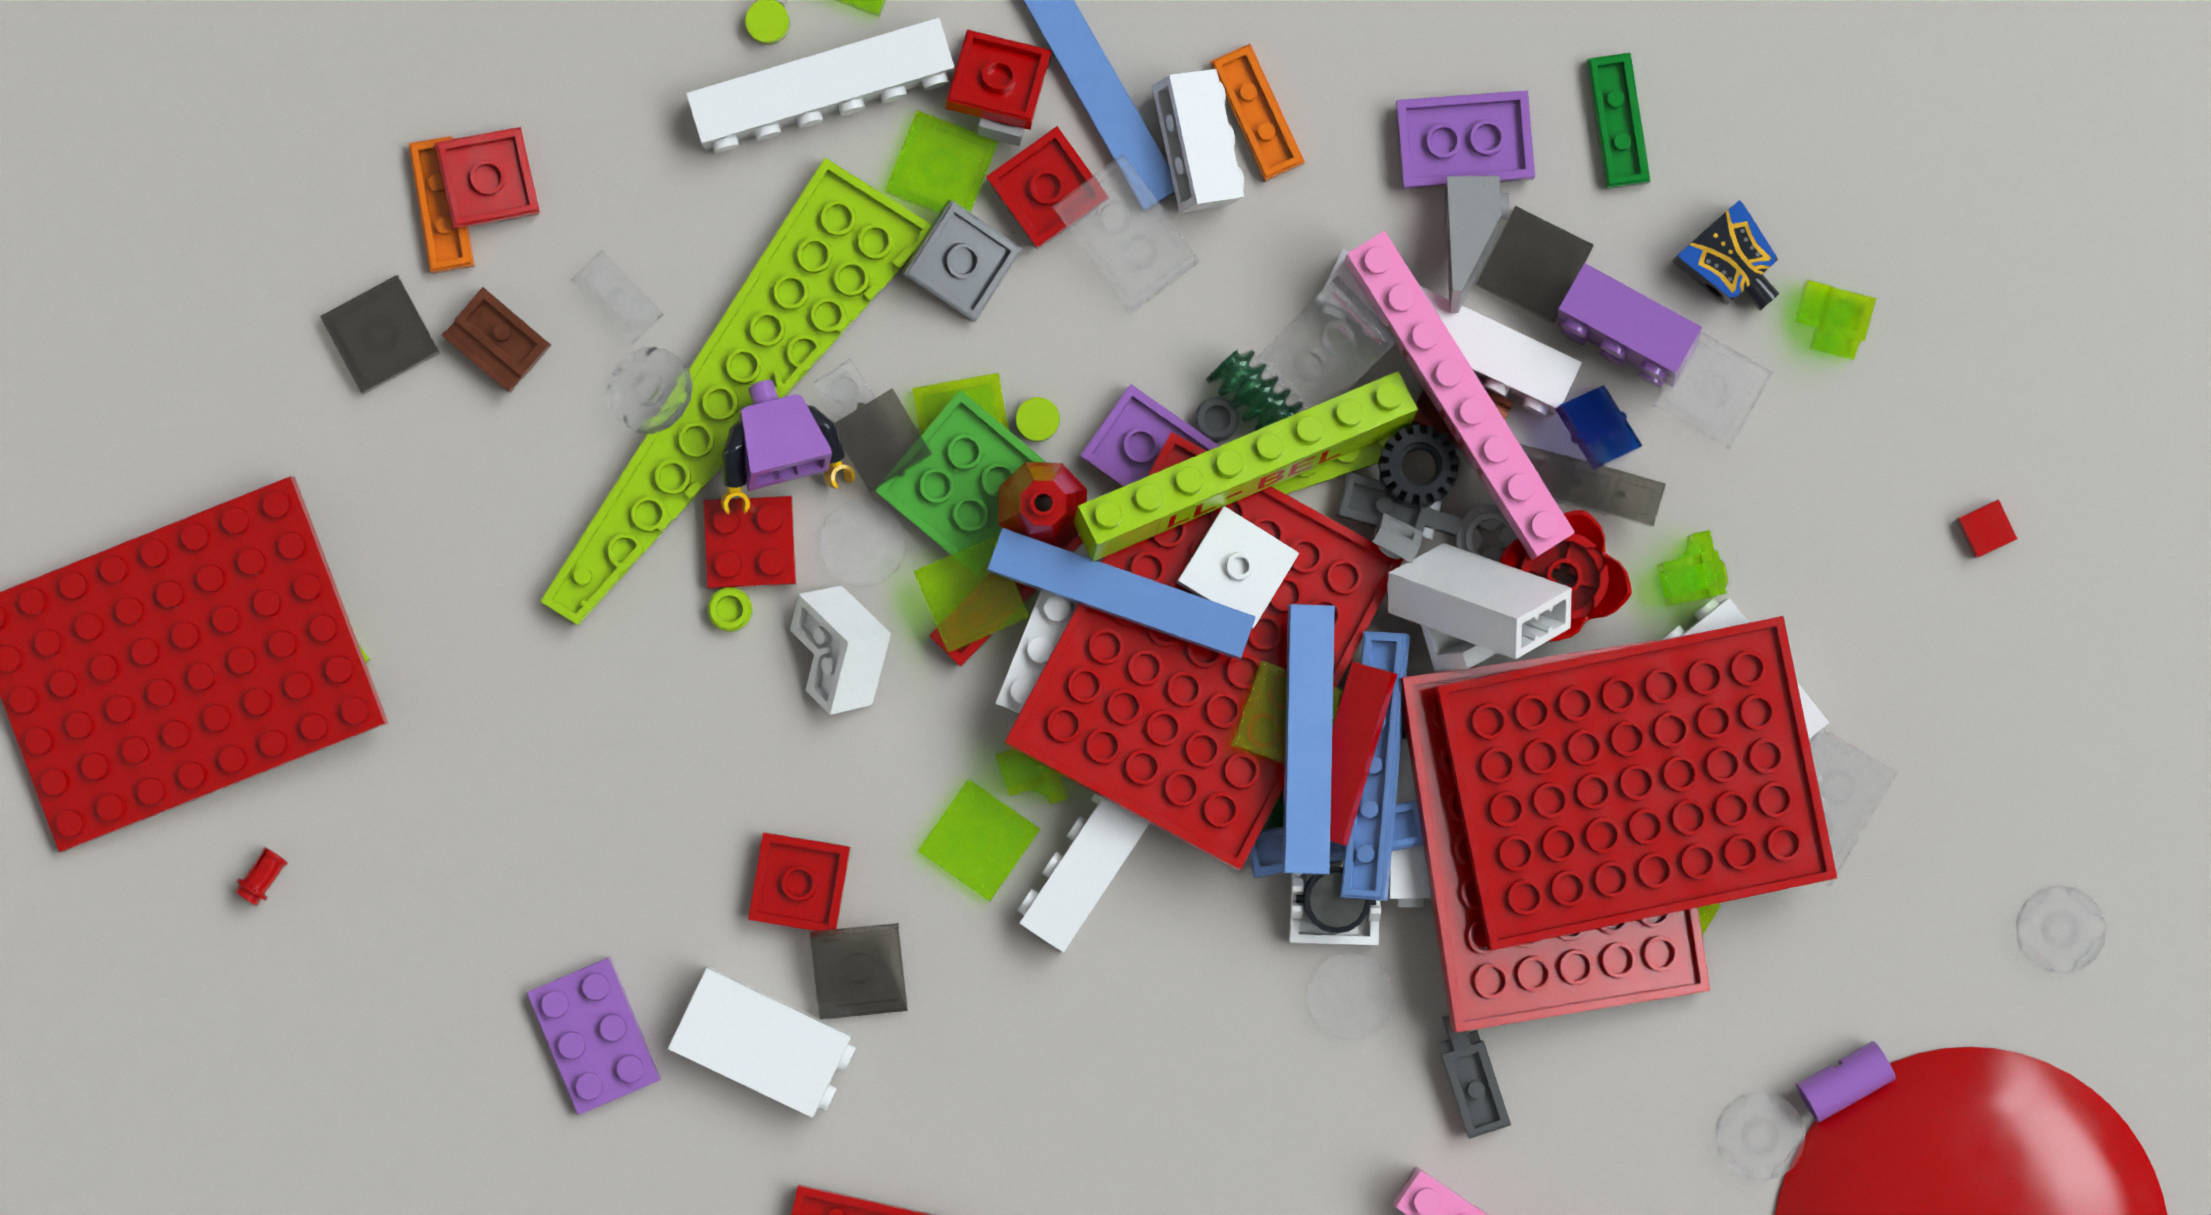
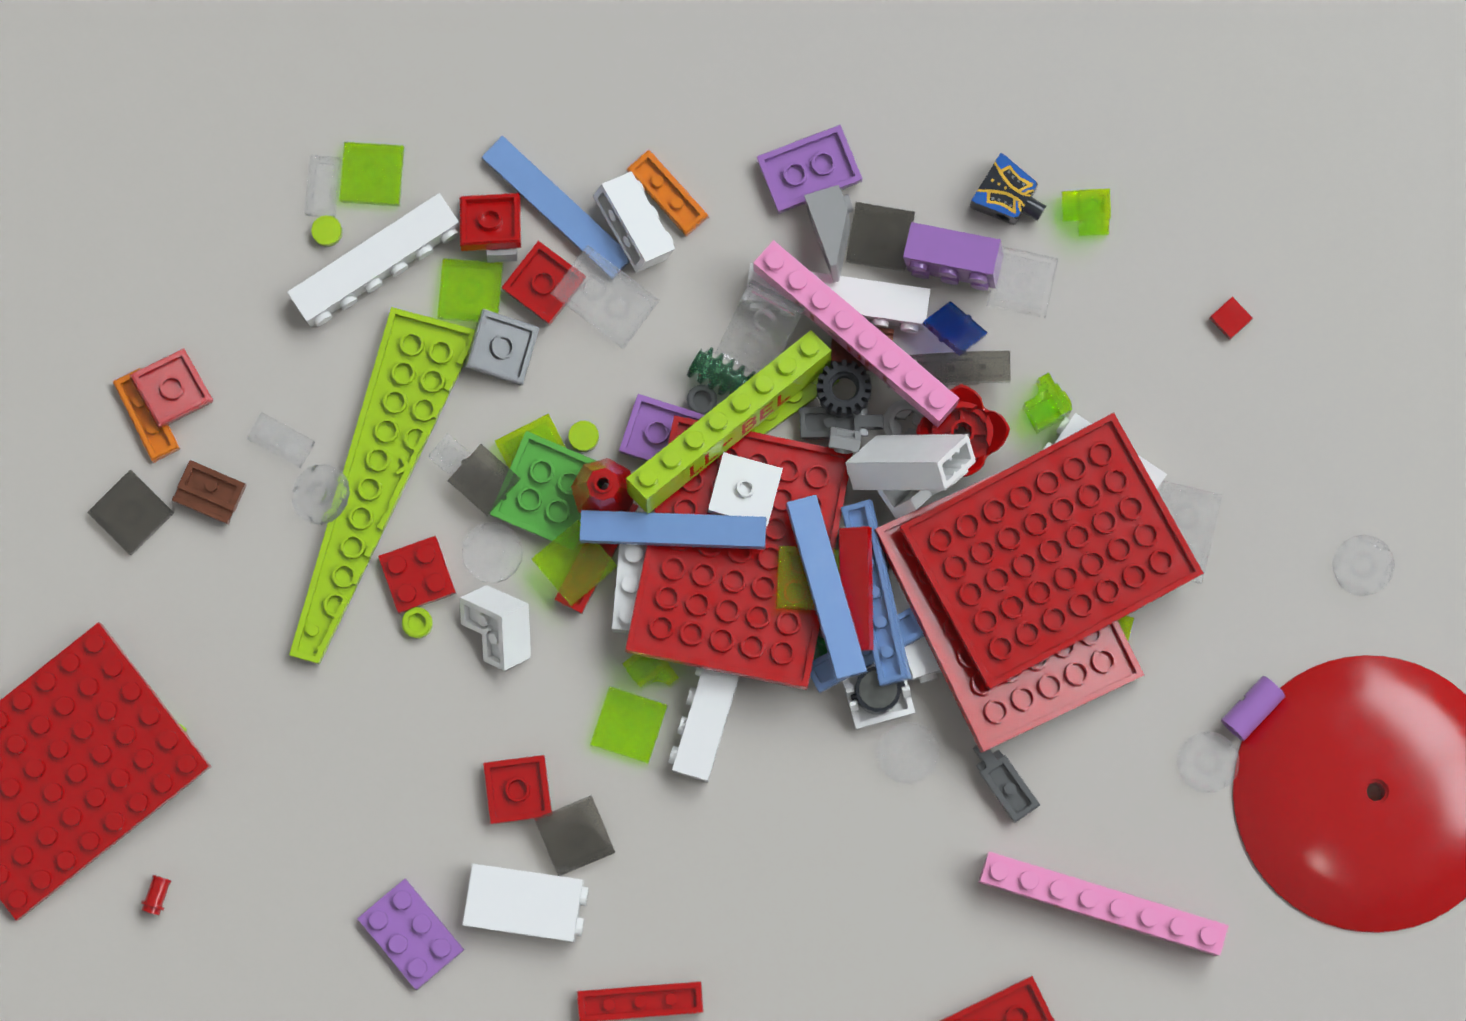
camera: 10 degrees left, 5 degrees down
(778, 444) = (416, 501): medium lavender torso -> none
(1618, 121) = (906, 127): green tile -> none

